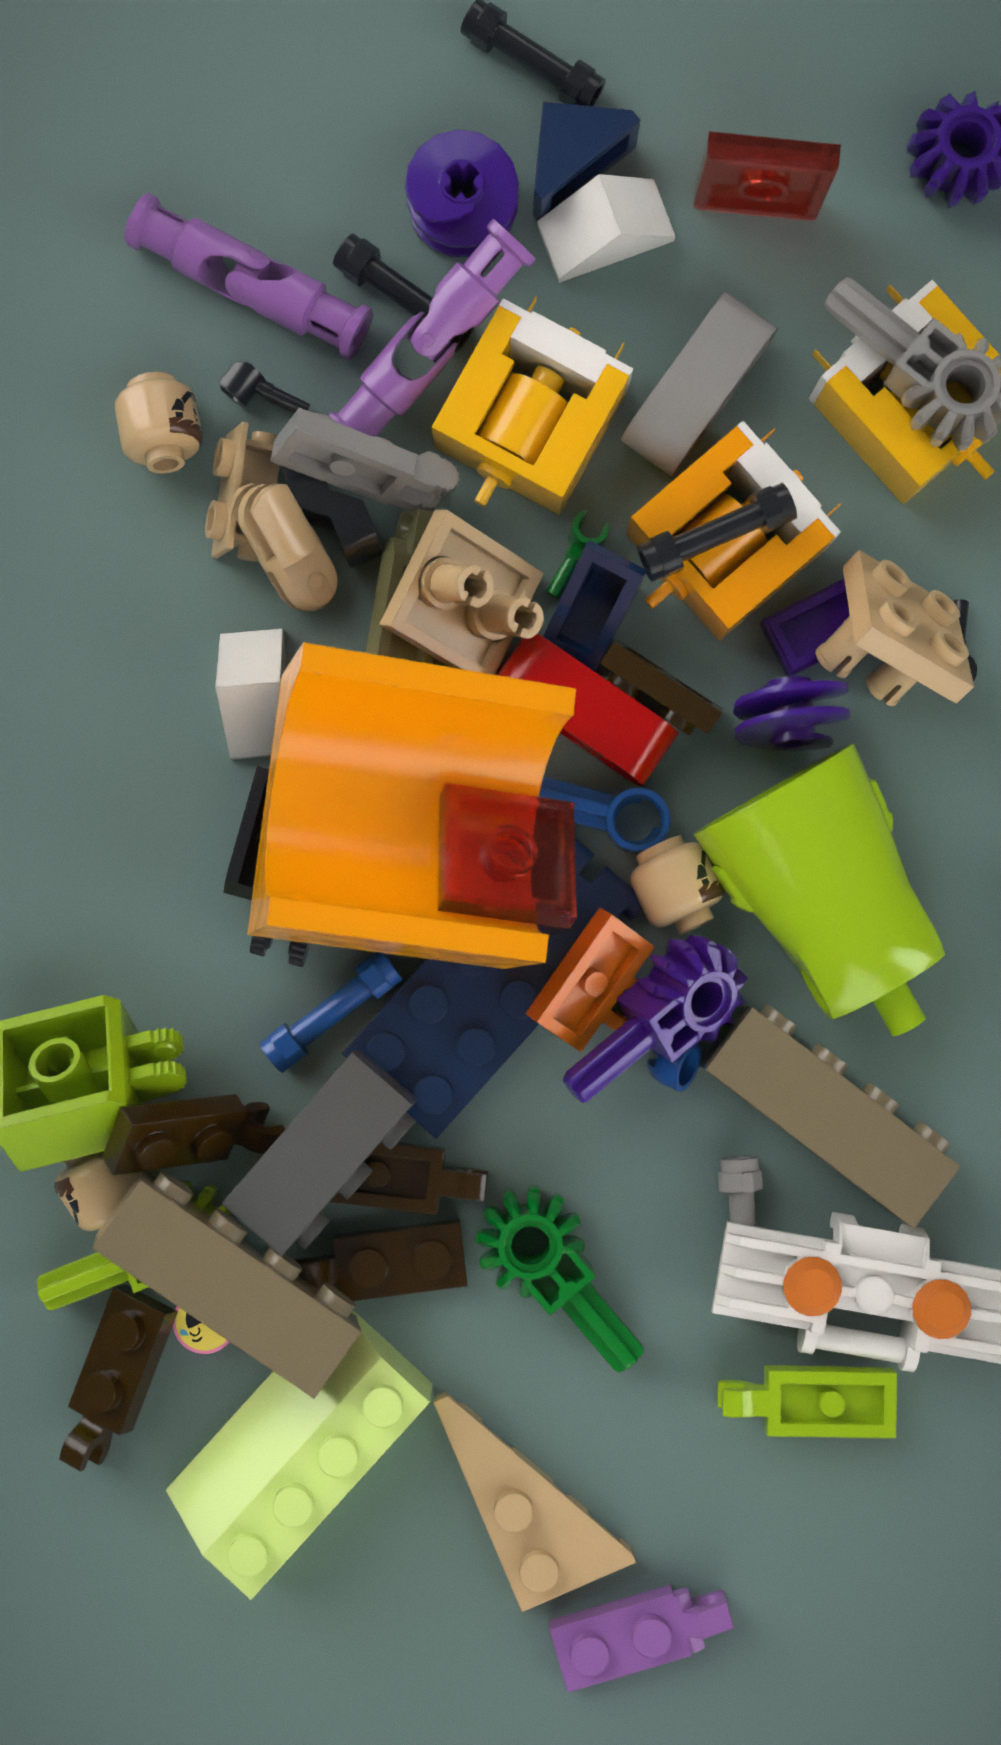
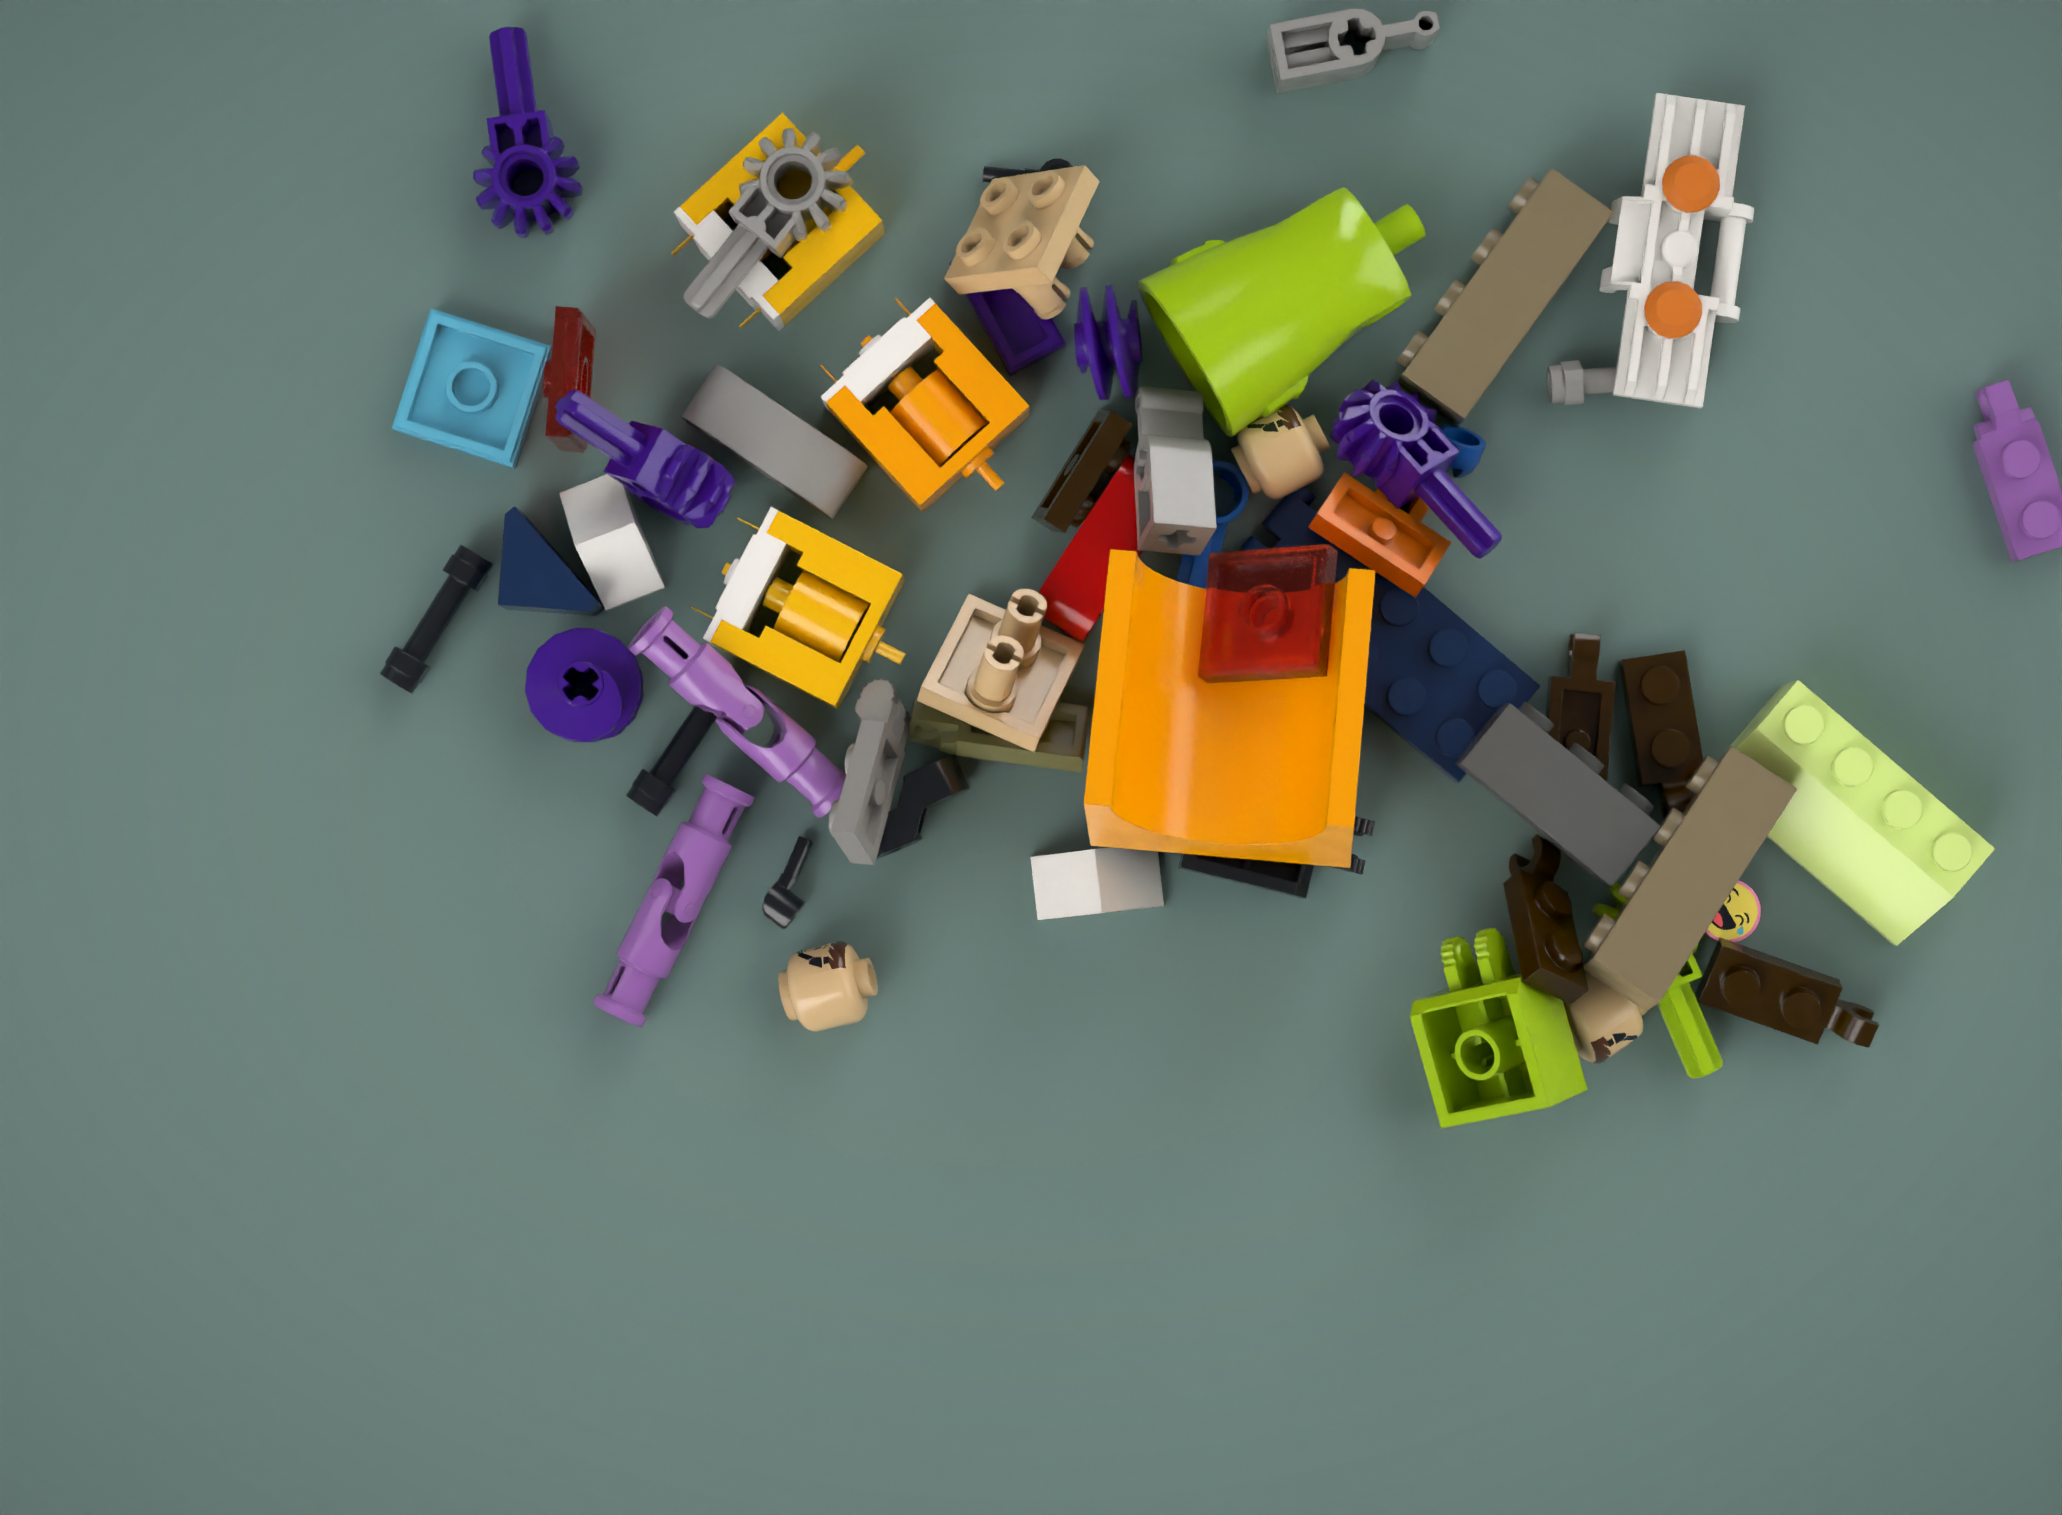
camera: 90 degrees left, 0 degrees up
(238, 464) = (924, 908): tan hinge -> none
(286, 545) = (952, 851): tan arm -> none
(289, 1044) = (1451, 837): blue bar -> none
(536, 1528) = (1921, 575): tan wing -> none
(557, 1273) = (1669, 562): green gear -> none
(577, 544) = (948, 563): green hand -> none
(594, 604) = (1004, 542): dark blue slope -> none
(658, 771) = (1173, 473): none -> light grey piece
(683, 245) = (651, 462): none -> dark purple gear
(757, 86) = (472, 388): none -> medium azure tile
(767, 510) = (914, 370): black bar -> none
(816, 1401) = (1785, 302): lime plate -> none

